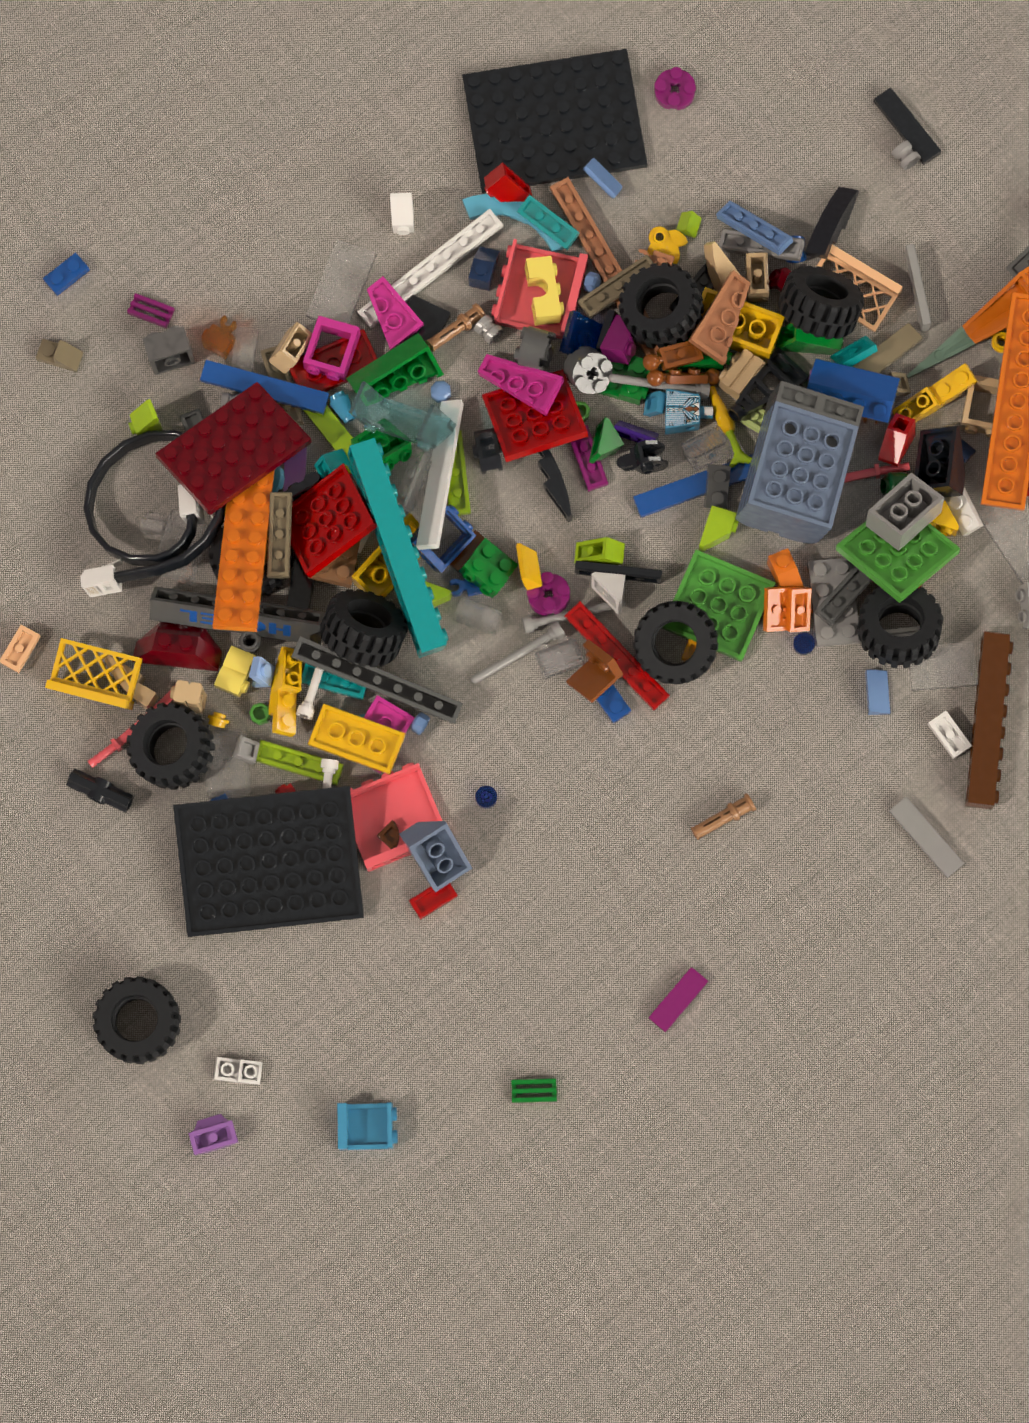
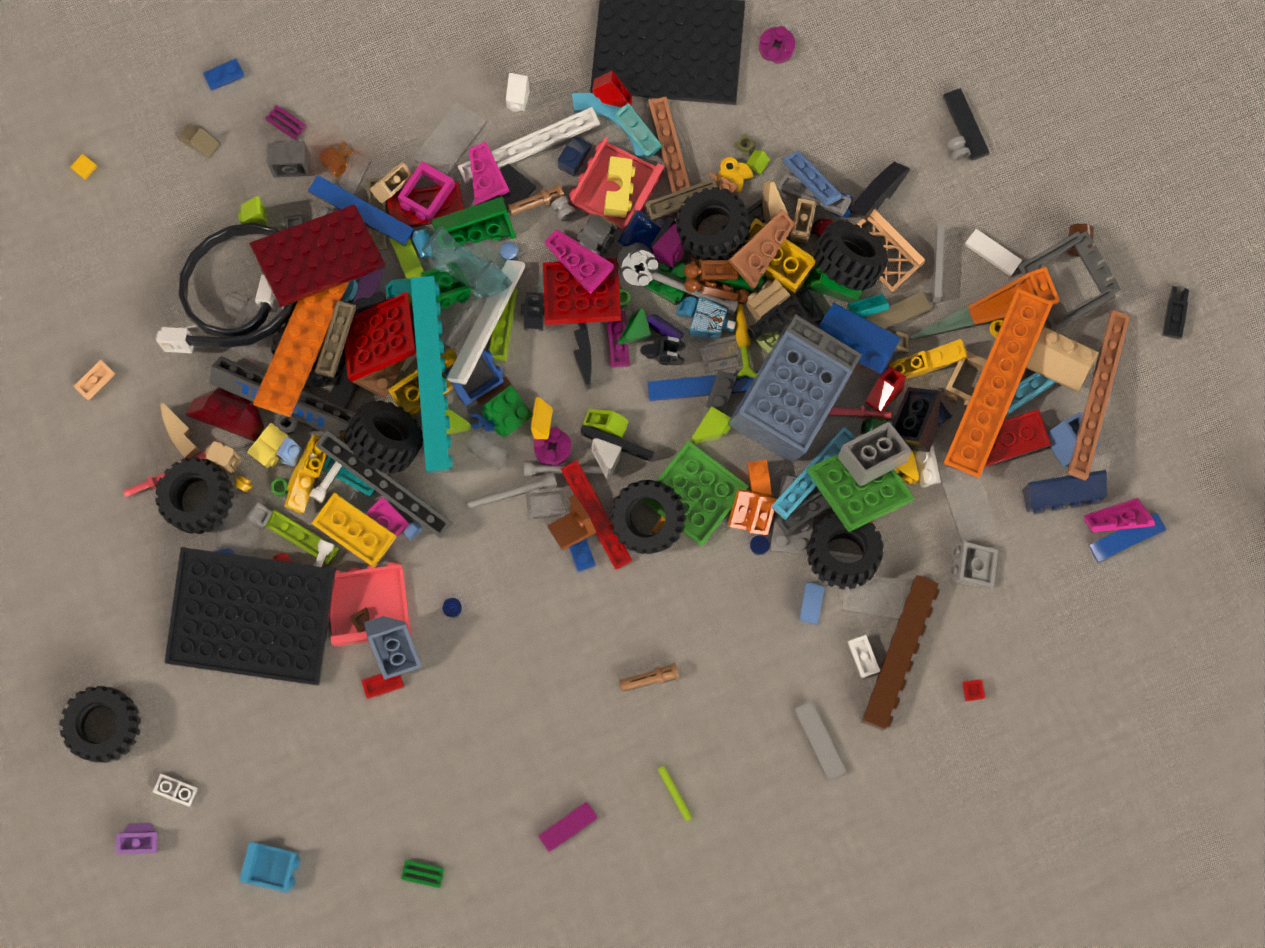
camera: 10 degrees right, 0 degrees up
(90, 692) = (137, 429): yellow fence -> none
(100, 790) = (126, 518): black piece -> none
(592, 281) = (662, 189): medium blue tile -> none
(602, 178) = (695, 104): medium blue slope -> none
(670, 203) = (745, 139): none -> olive plate
(784, 934) = (674, 793): none -> lime bar
(836, 563) = (804, 484): none -> medium azure plate
(974, 260) = (993, 252): none -> white tile

